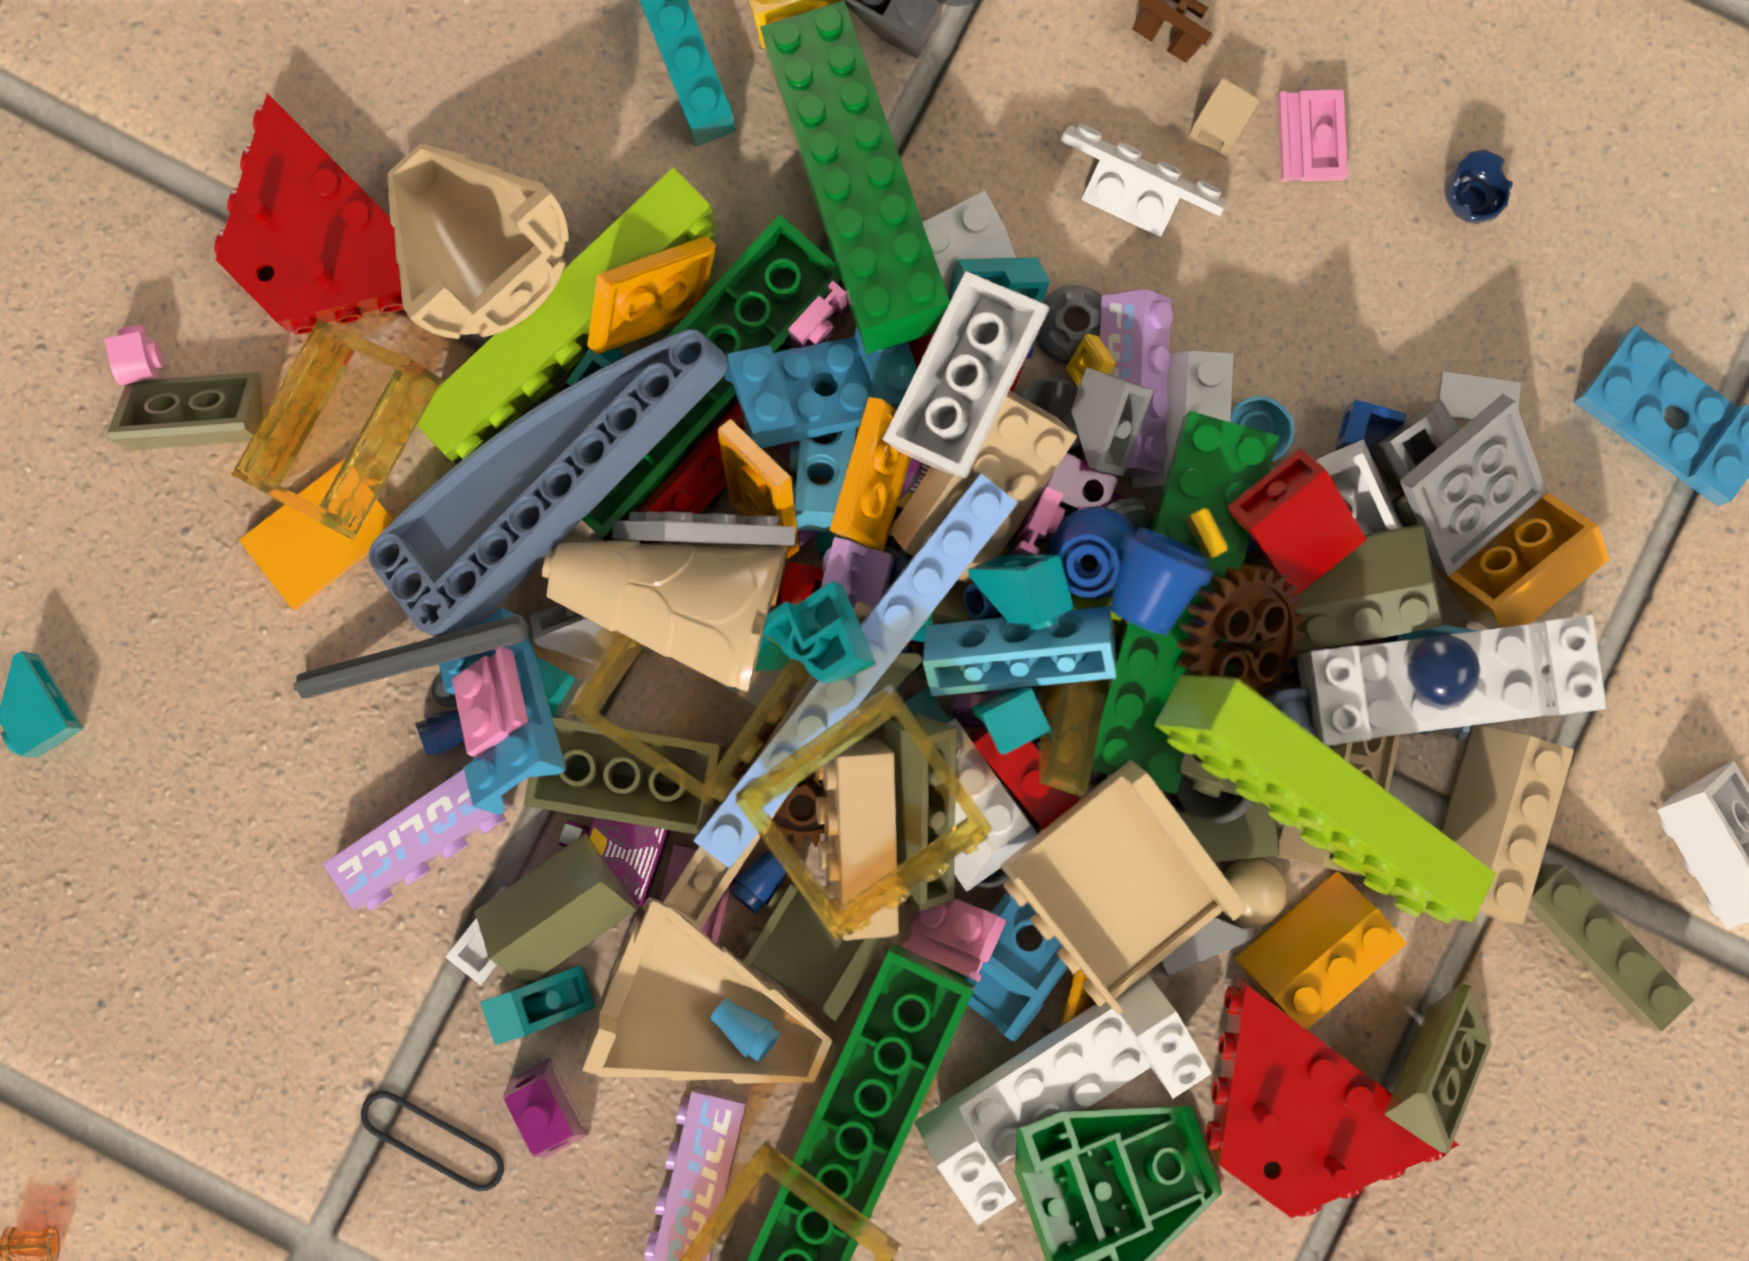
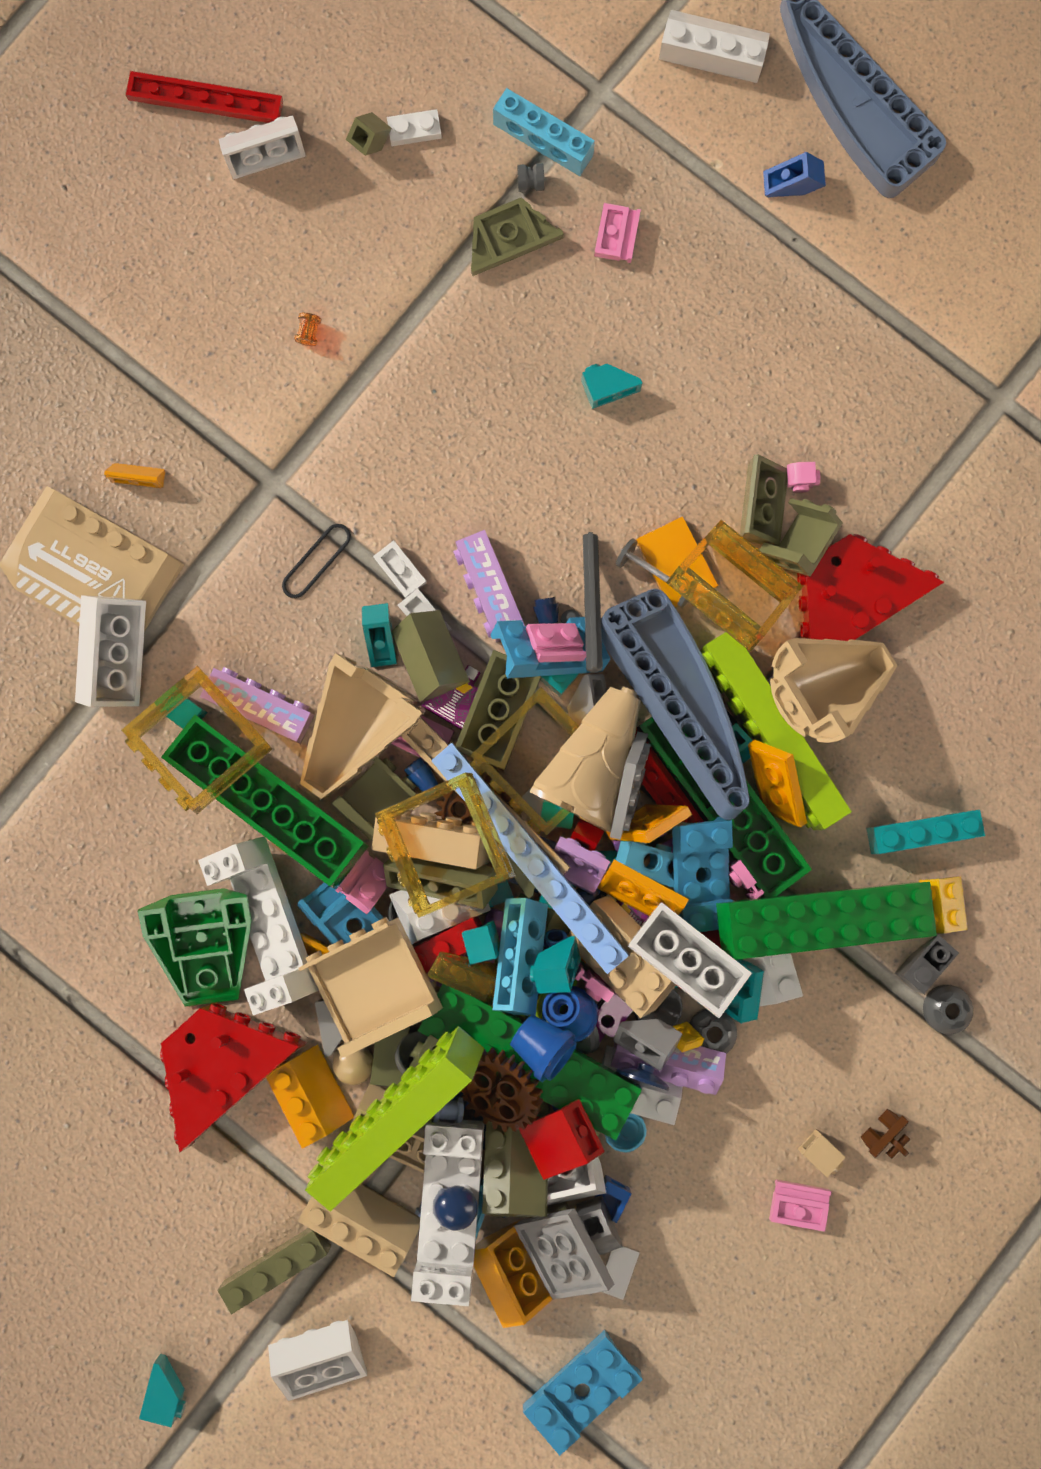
camera: 100 degrees right, 0 degrees up
(235, 329) = (806, 538): none -> olive panel
(318, 618) = (627, 553): none -> axle
(418, 995) = (399, 569): none -> white plate
(543, 1110) = (319, 626): magenta torso -> none
(745, 1029) = (337, 751): dark azure cone -> none
(822, 634) = (553, 842): teal slope -> none
(1136, 188) = (788, 1090): white bracket -> none
(1164, 414) = (644, 1074): none -> dark blue dish
(1206, 533) = (565, 1082): yellow tile -> none
(1441, 1070) = (224, 1152): olive slope -> none
(1477, 187) = (747, 1301): dark blue hair -> none

